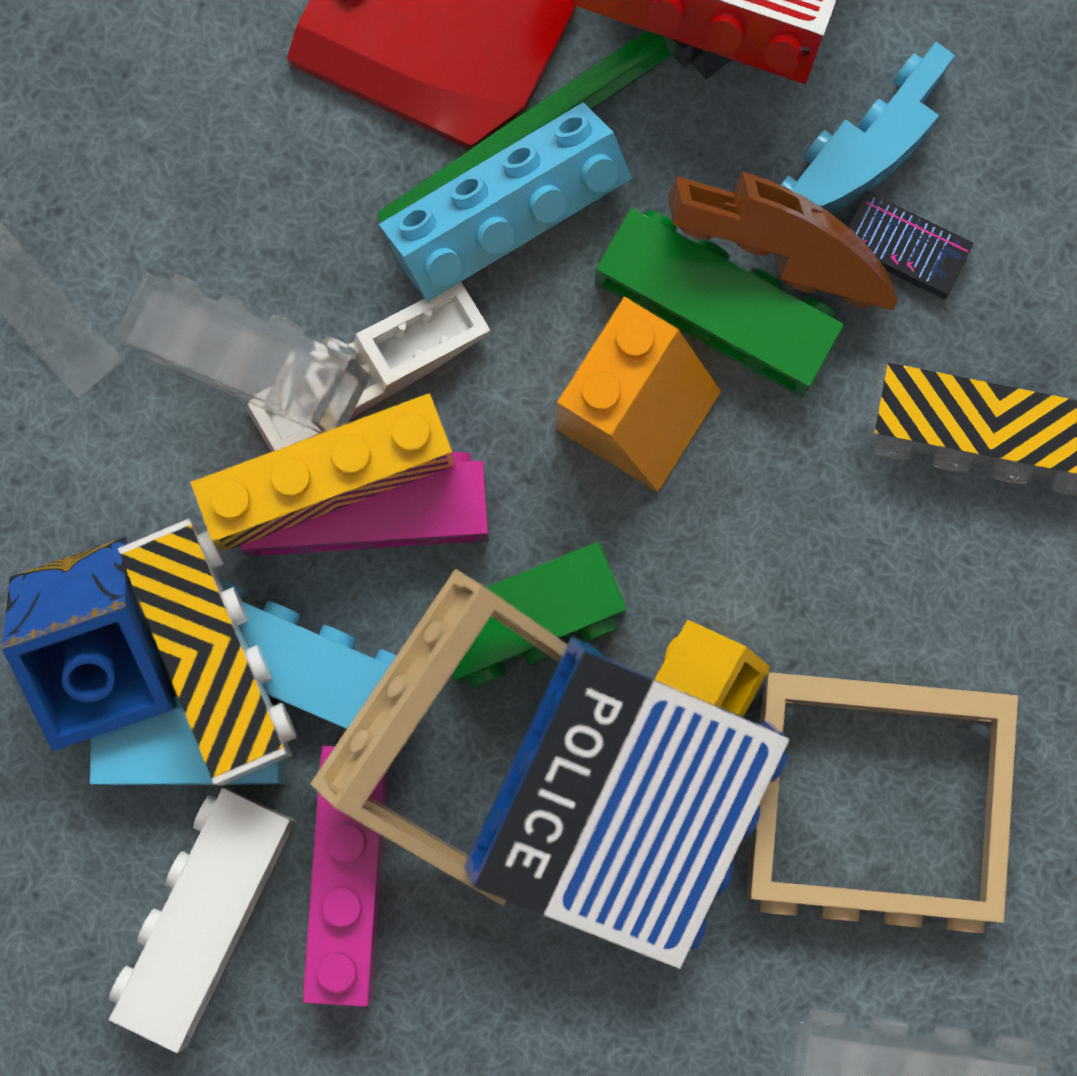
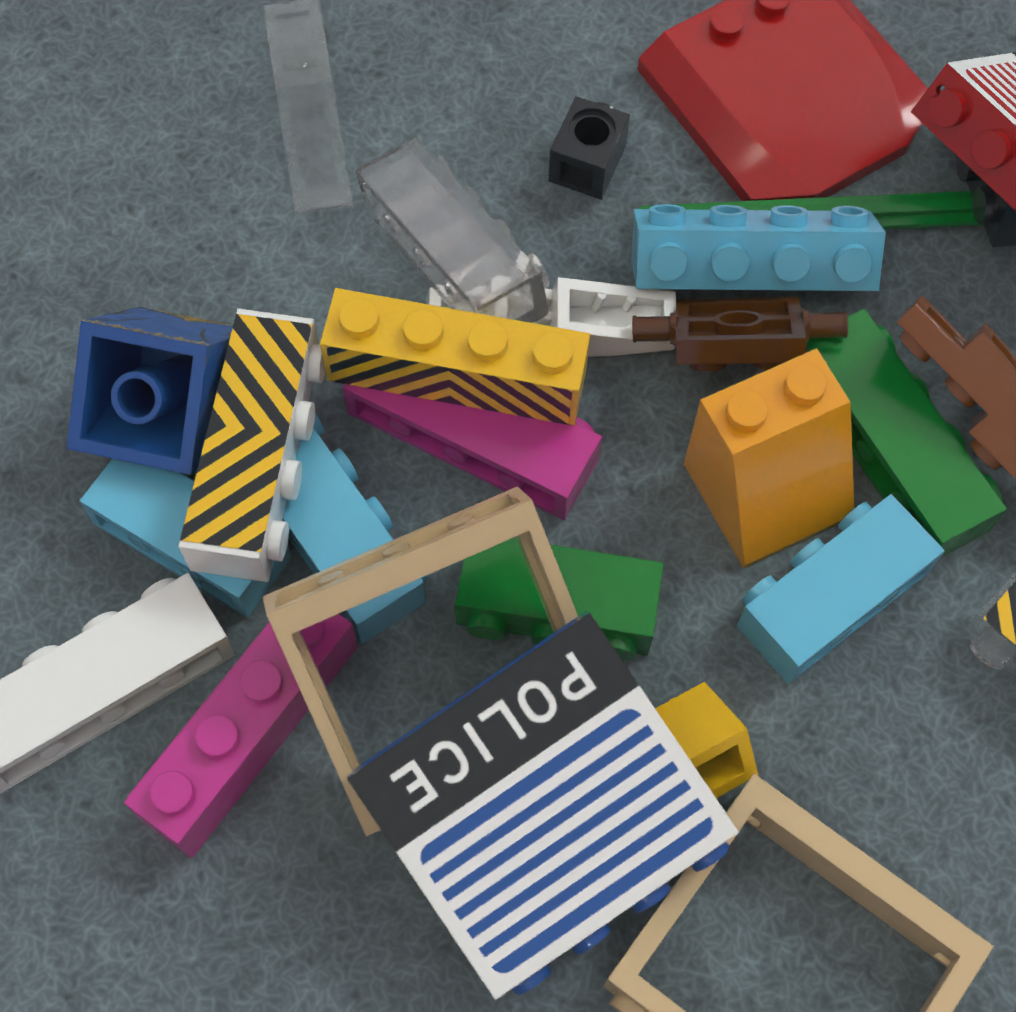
camera: 30 degrees right, 15 degrees down
(299, 204) = (585, 166): none -> black brick
(539, 293) = (739, 331): none -> reddish brown plate
(744, 468) = (837, 586): none -> medium azure brick

